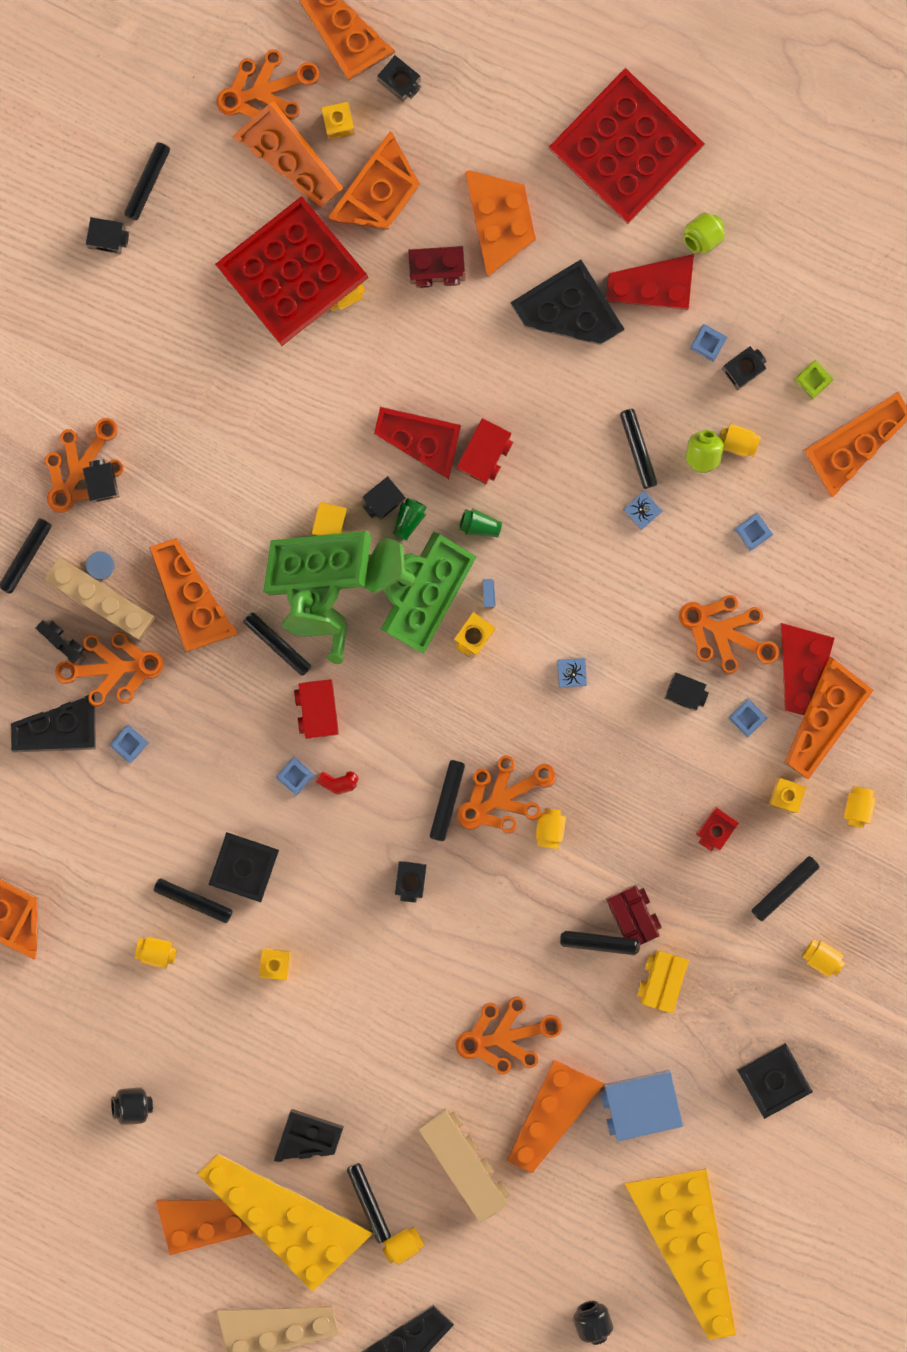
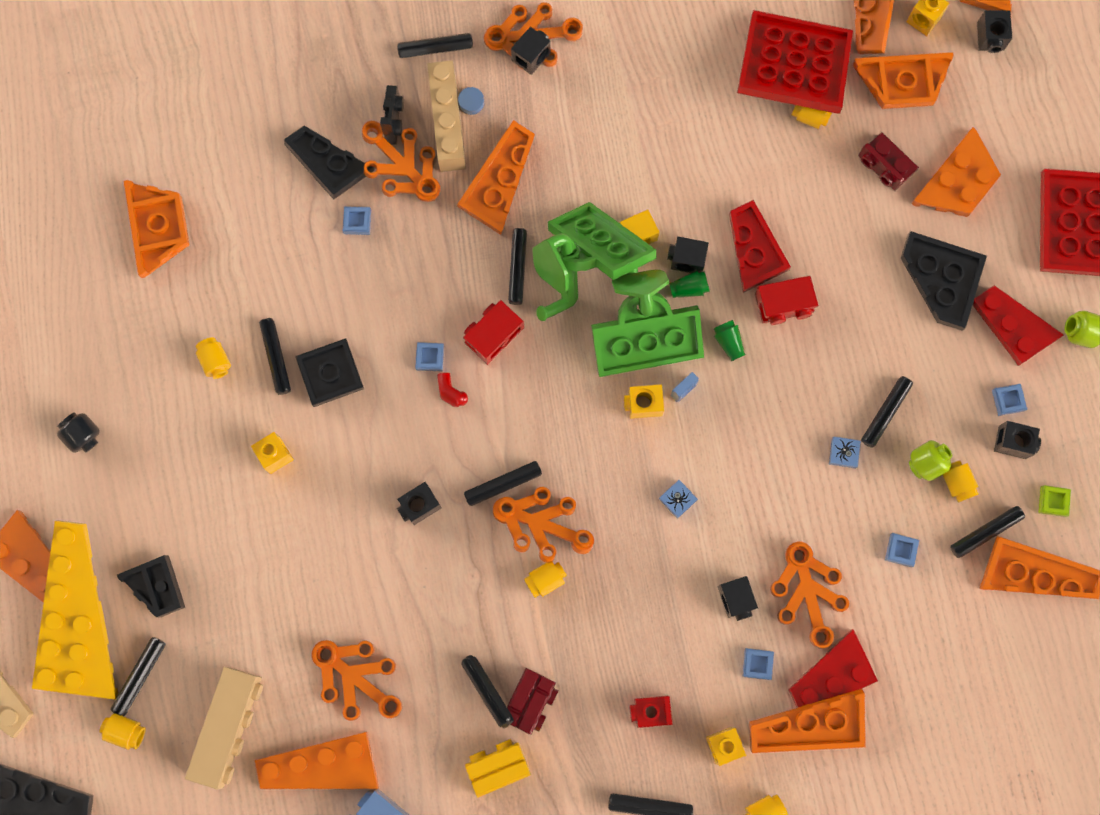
camera: 55 degrees right, 10 degrees down
(794, 453) = (987, 531): none -> black axle

